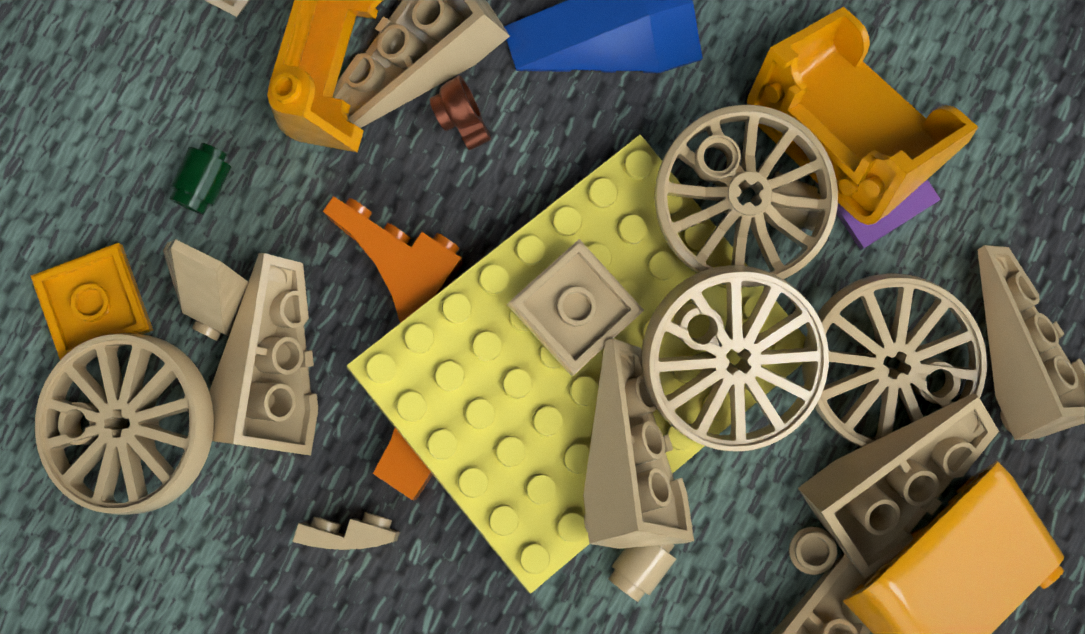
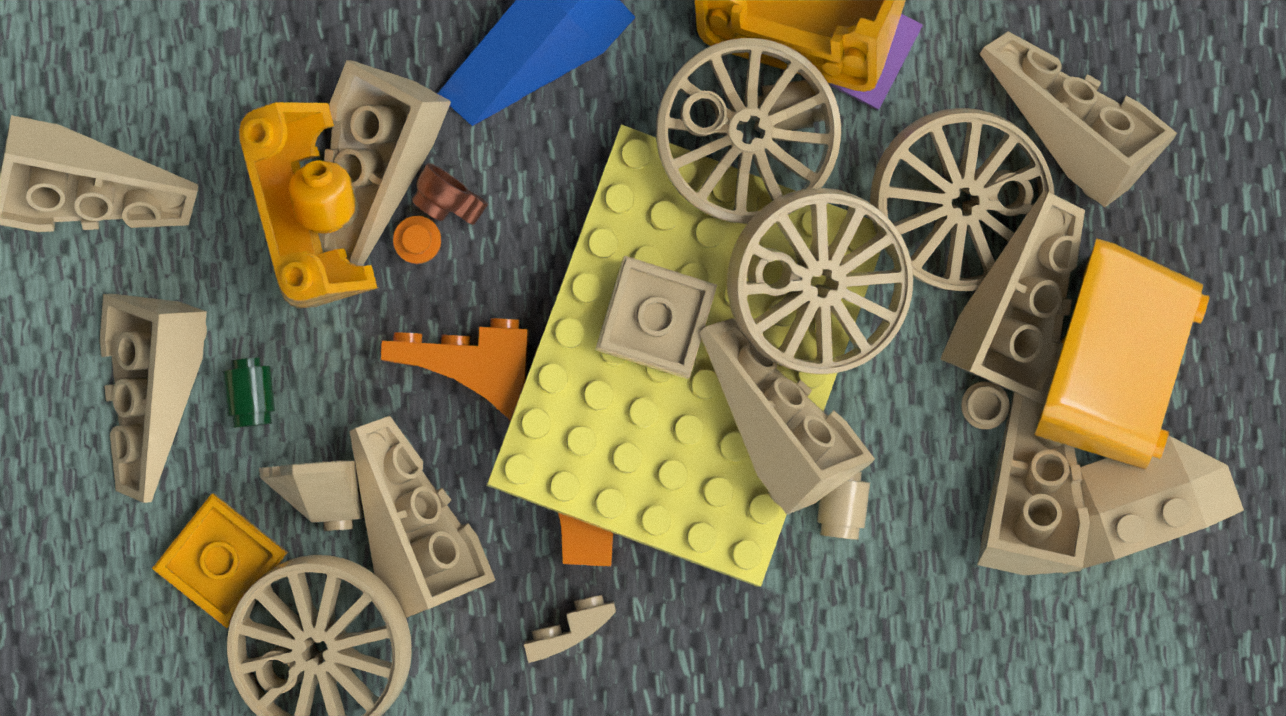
camera: 30 degrees left, 5 degrees up
(142, 107) = (155, 364): none -> tan wedge
(355, 47) = (322, 196): none -> light orange head
(415, 134) = (417, 239): none -> orange plate

